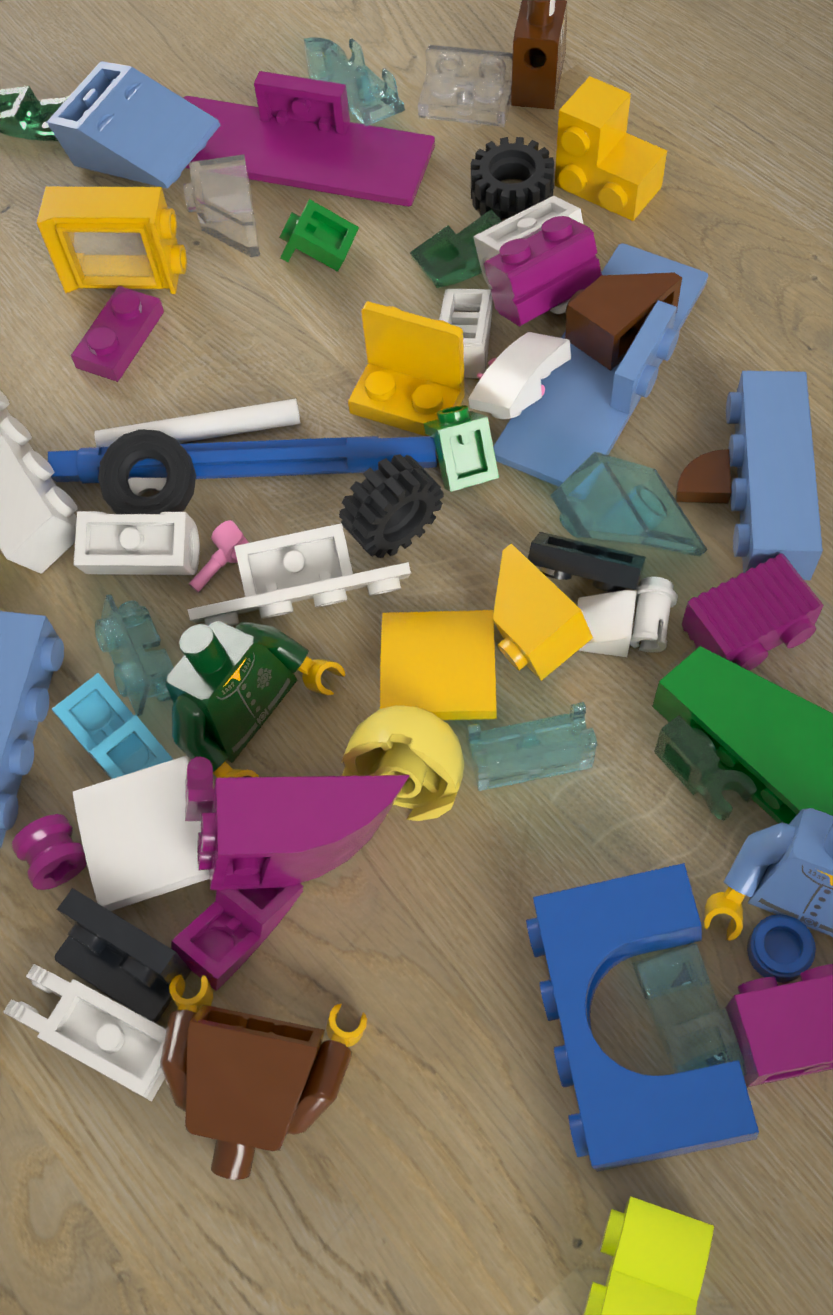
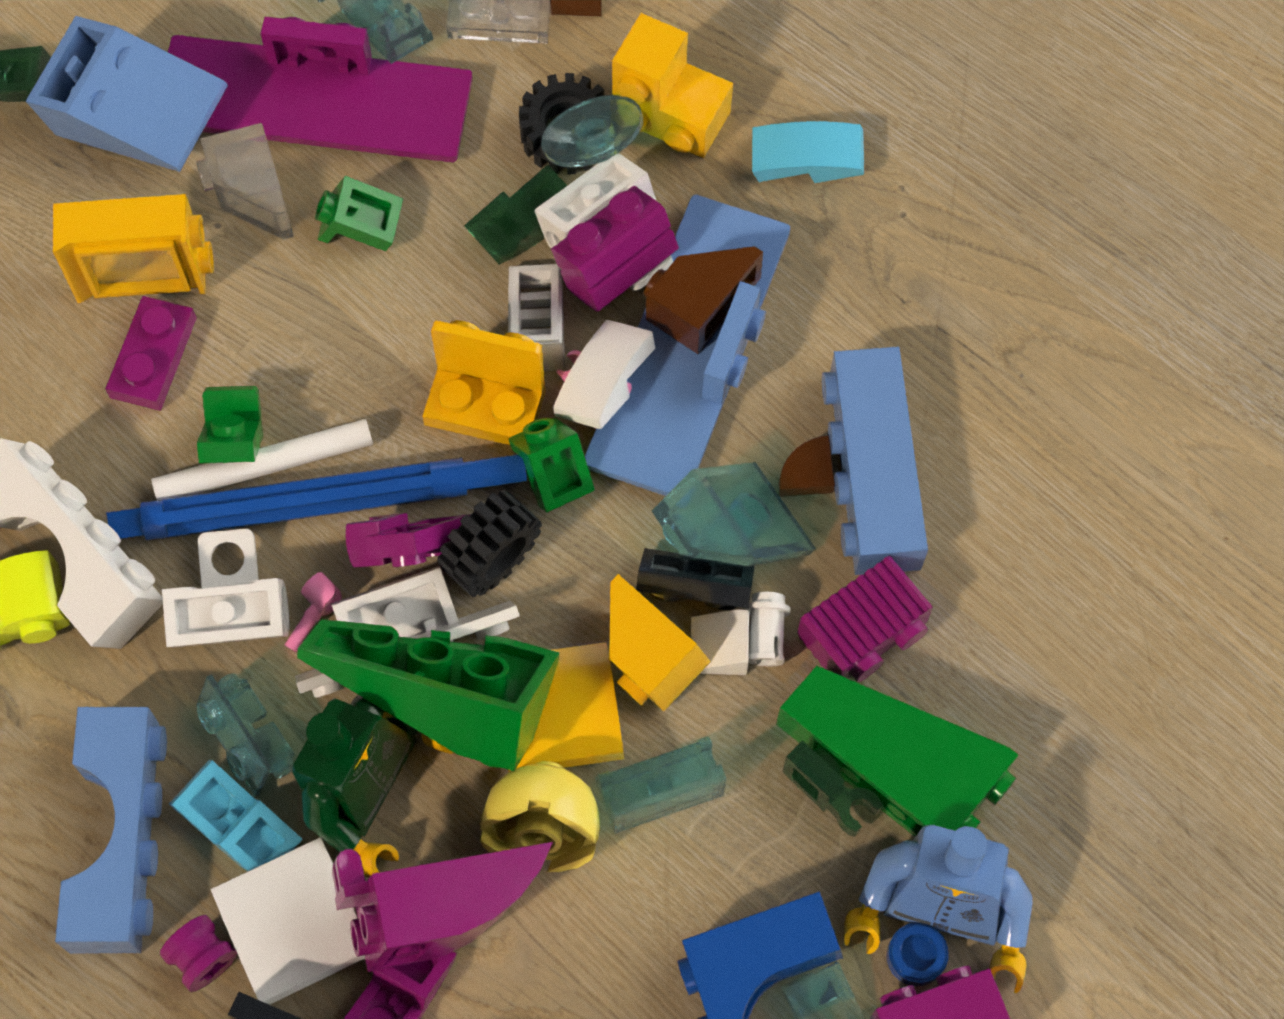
camera: 15 degrees left, 5 degrees up
(136, 447) = (188, 534): black tyre -> none
(175, 389) = (231, 425): none -> green bracket
(301, 495) = (396, 540): none -> magenta plate
(339, 635) = (460, 694): none -> green wedge
(535, 176) = (592, 131): none -> clear light blue dish
(742, 214) = (811, 147): none -> medium azure slope

